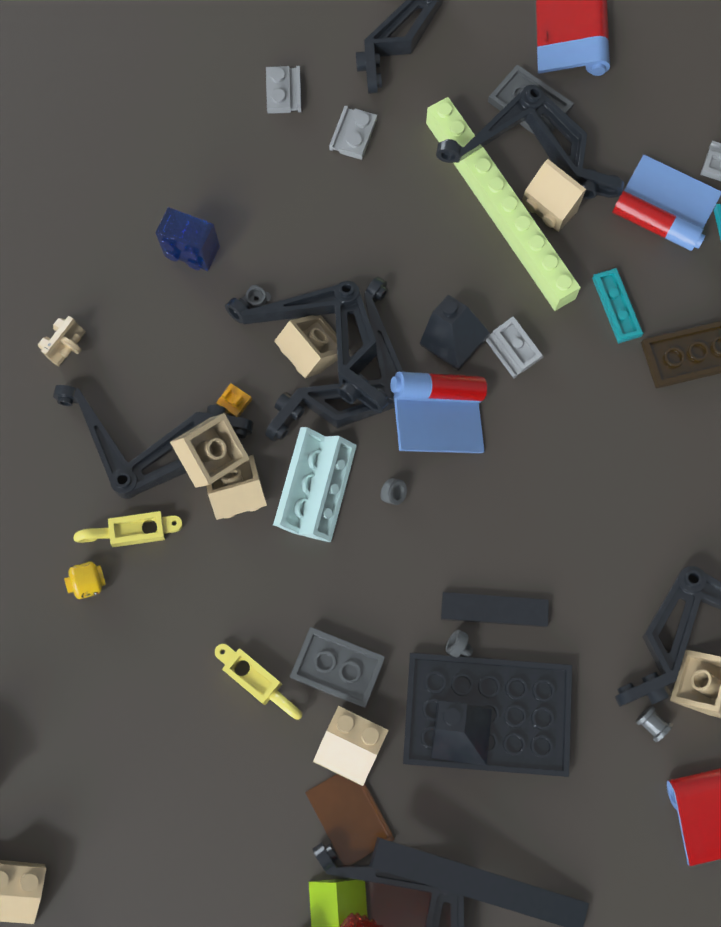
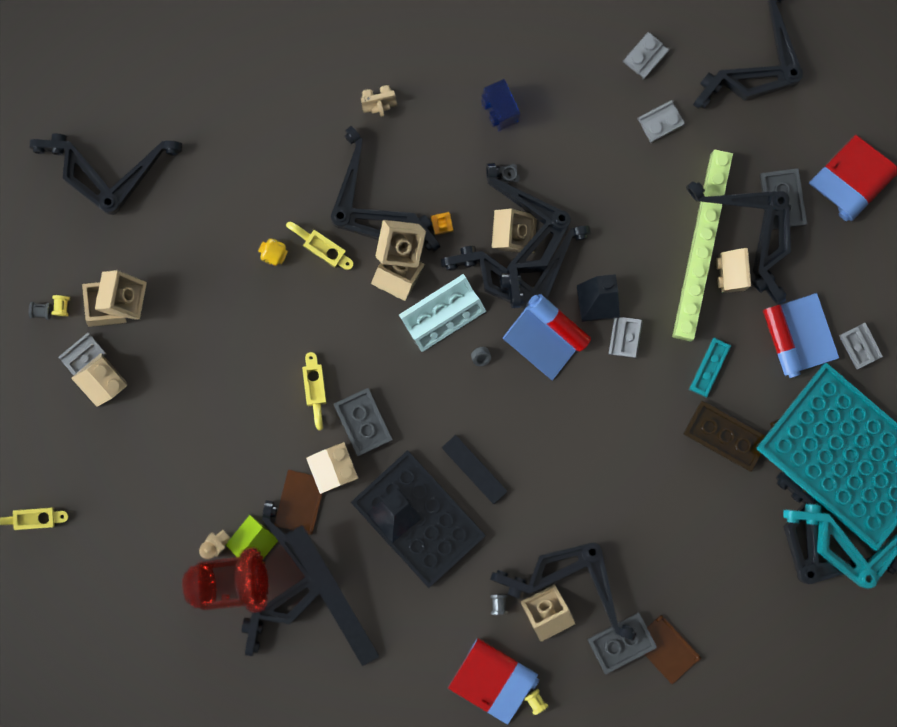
camera: 40 degrees right, 10 degrees up
(458, 644) = (437, 468): dark grey tile -> none

